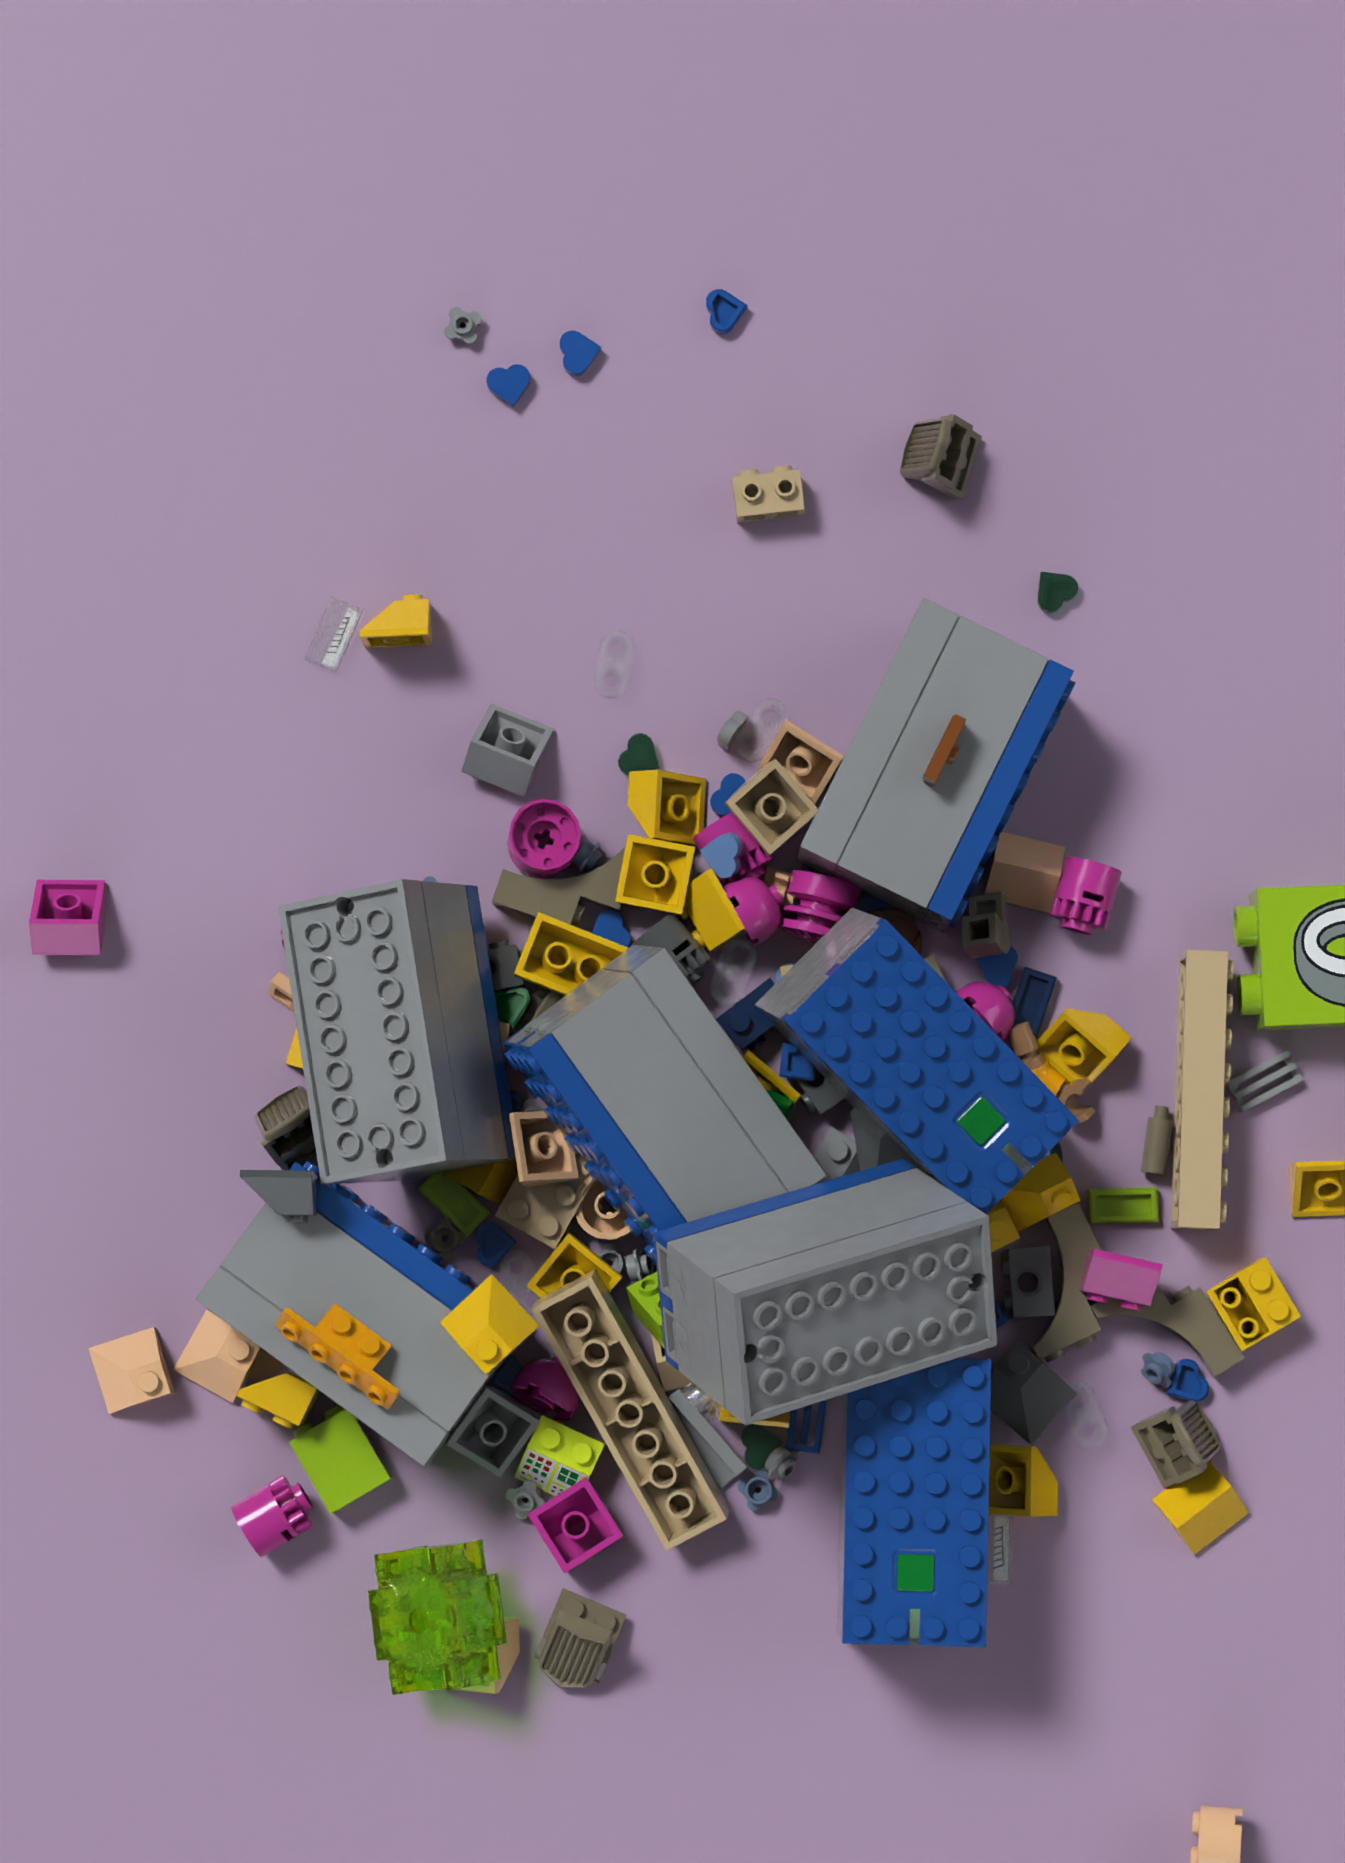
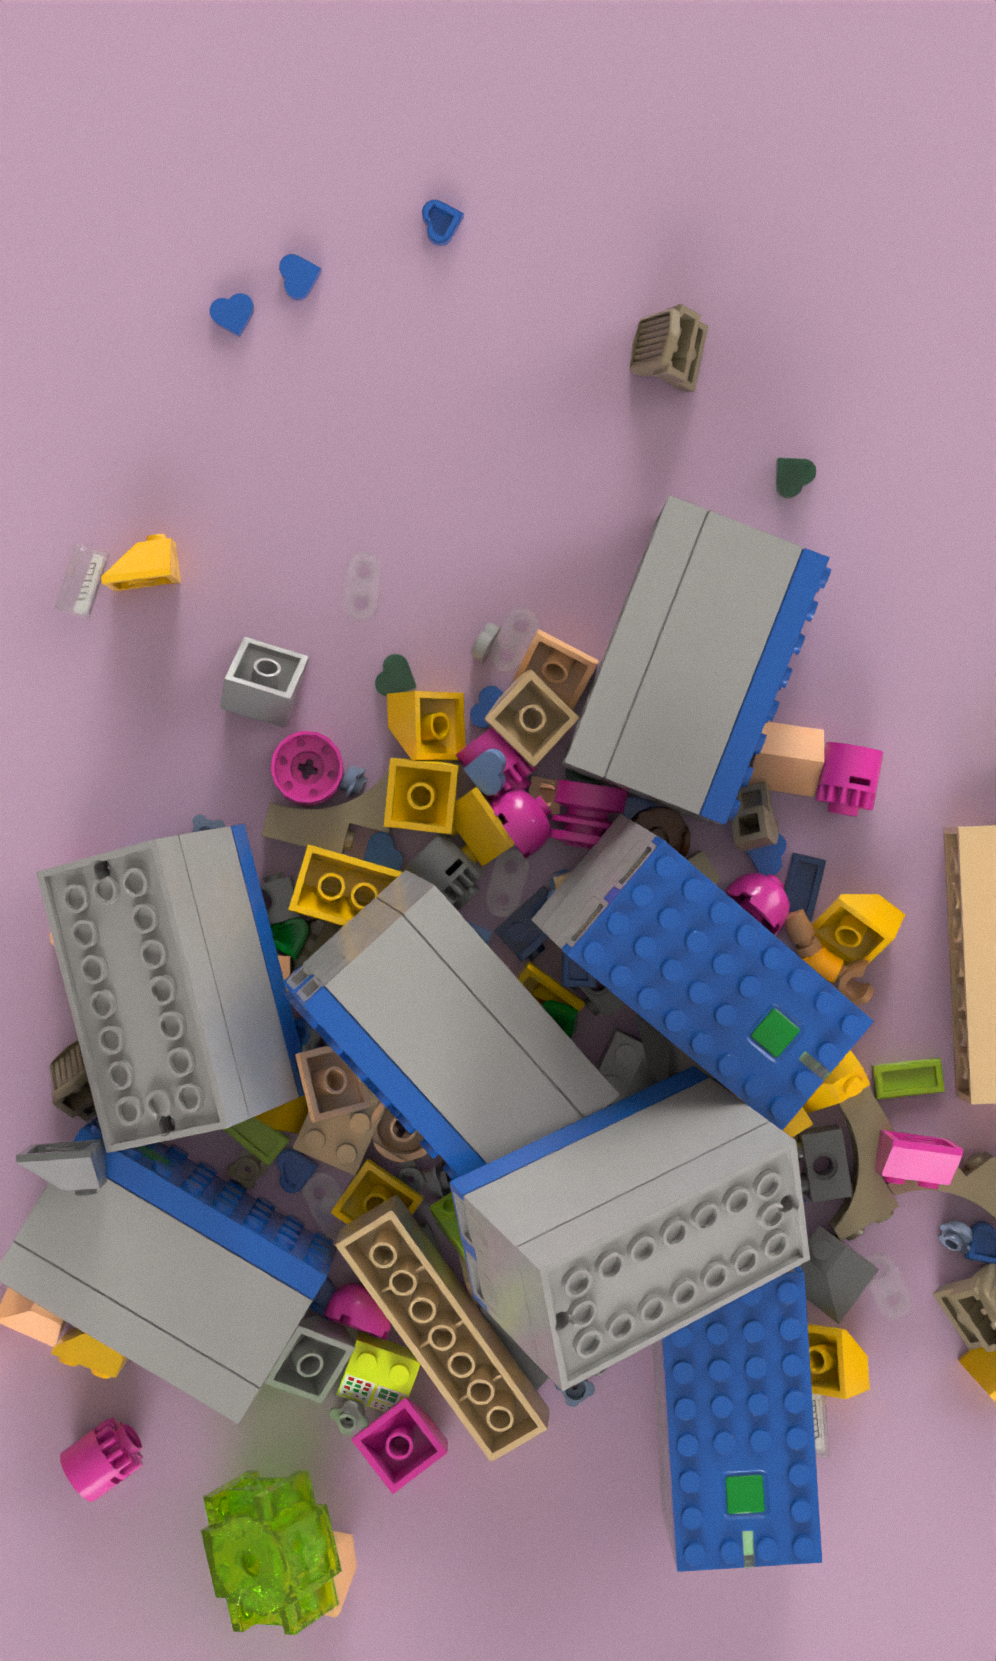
camera: 10 degrees left, 5 degrees up
(339, 1458) = (158, 1406): lime panel -> none
(345, 1347) = (148, 1314): light orange bracket -> none
(465, 334) = (184, 267): light grey plate -> none
(489, 1324) = (291, 1280): yellow slope -> none
(578, 1641) = (413, 1549): dark tan piece -> none
(768, 494) = (500, 403): tan brick -> none
(945, 751) = (706, 652): dark orange plate -> none
(1157, 1142) = (937, 1014): dark tan cylinder -> none

